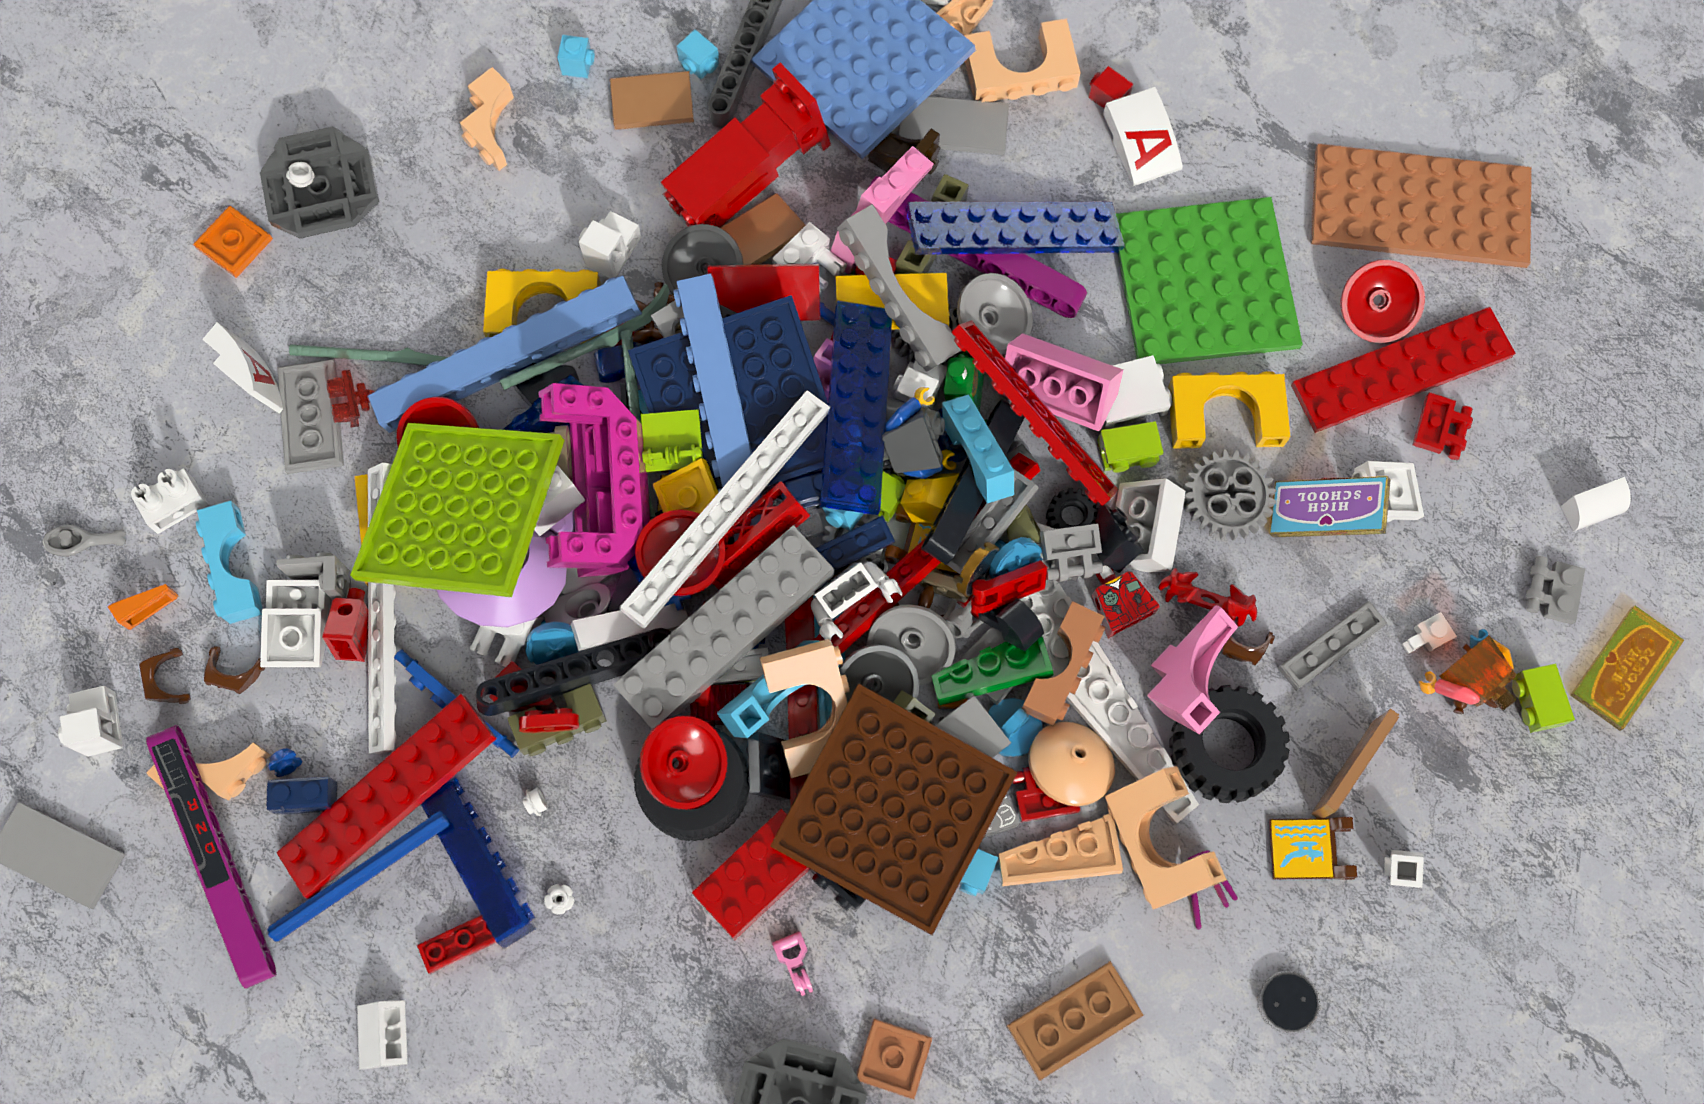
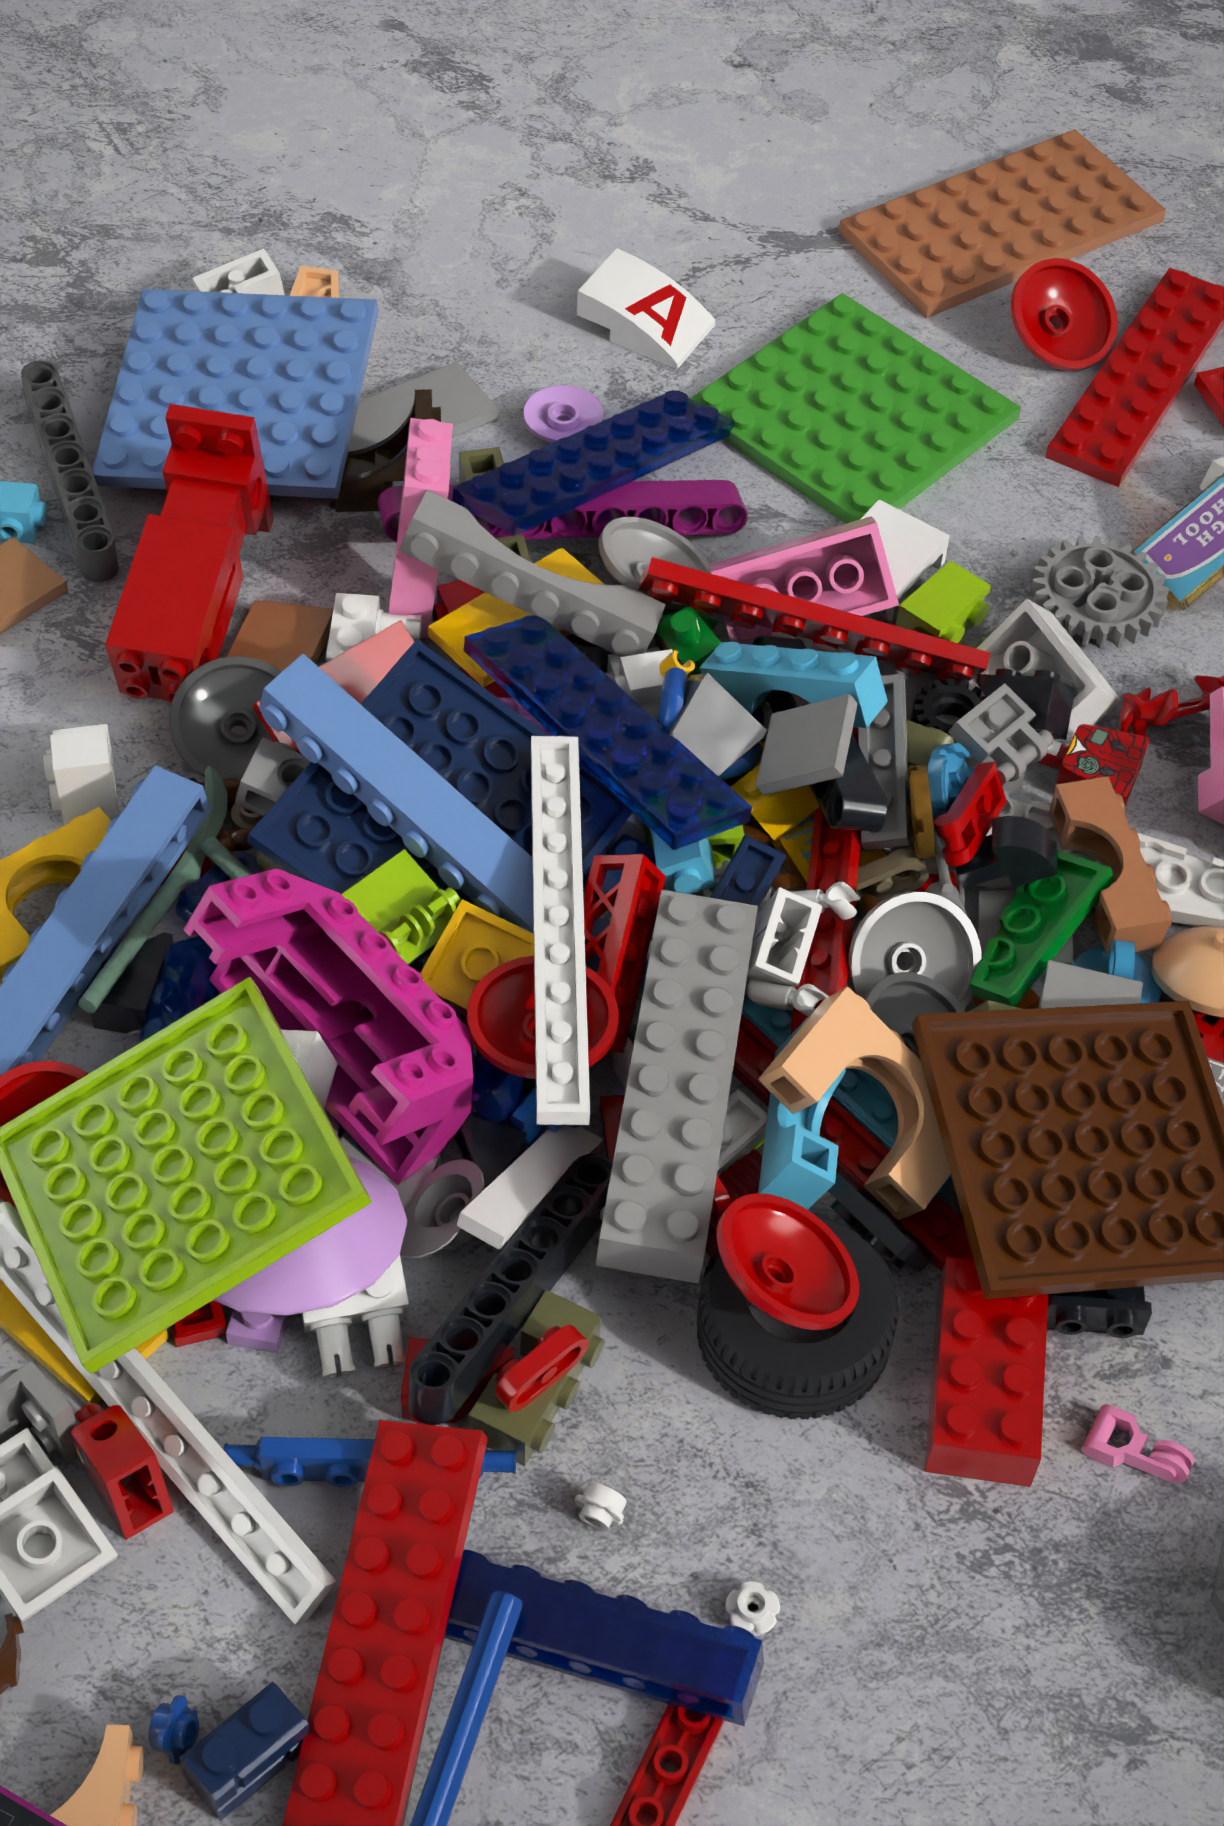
camera: 40 degrees left, 20 degrees down
(550, 642) = (444, 1273): dark azure tile -> none
(946, 492) = (807, 744): none -> light grey tile
(994, 82) = (468, 284): light nougat arch -> none
(1035, 169) = (561, 412): none -> lavender dish
(1109, 87) = (559, 285): red brick -> none
(1260, 392) = (1028, 476): yellow arch -> none

